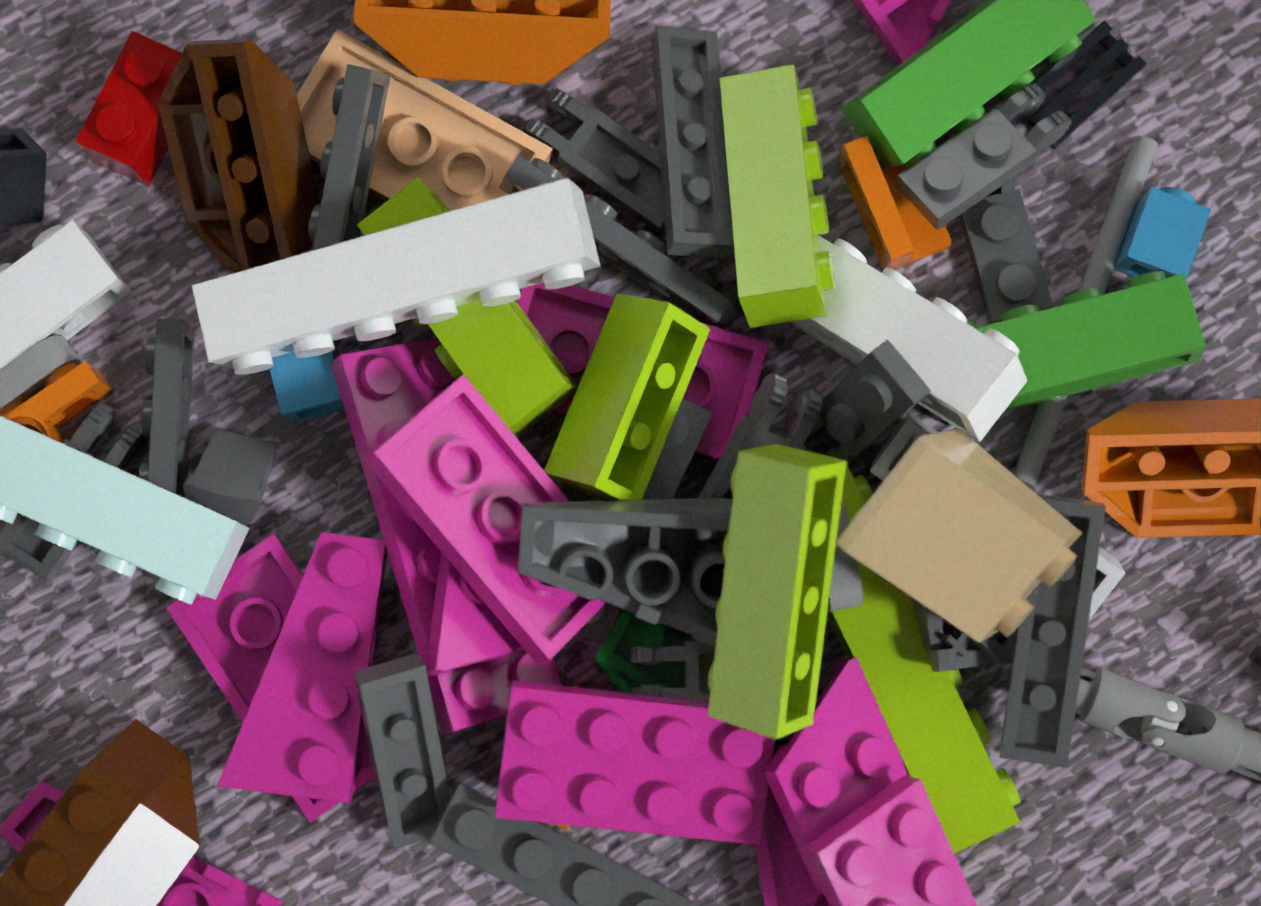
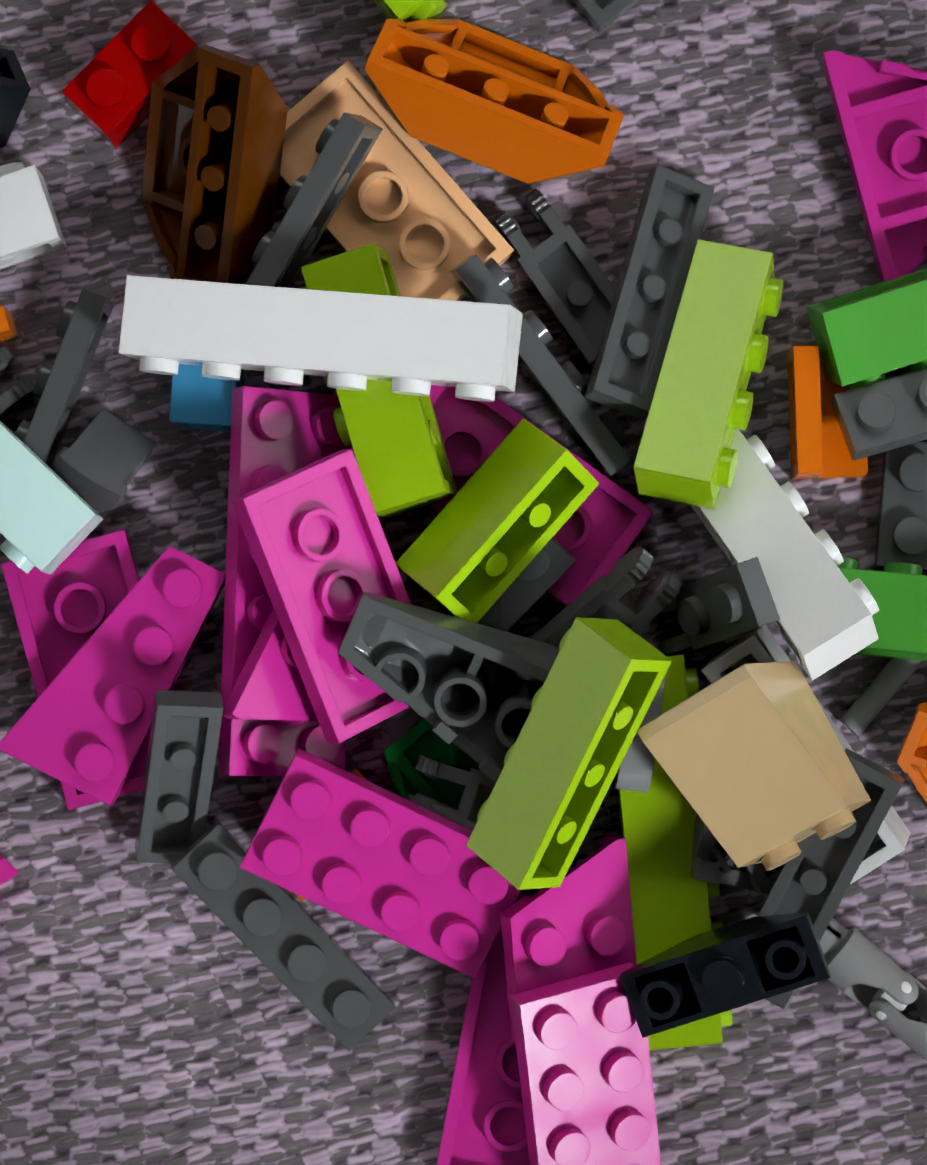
camera: 25 degrees right, 5 degrees up
(1002, 748) = (724, 971): none -> black slope

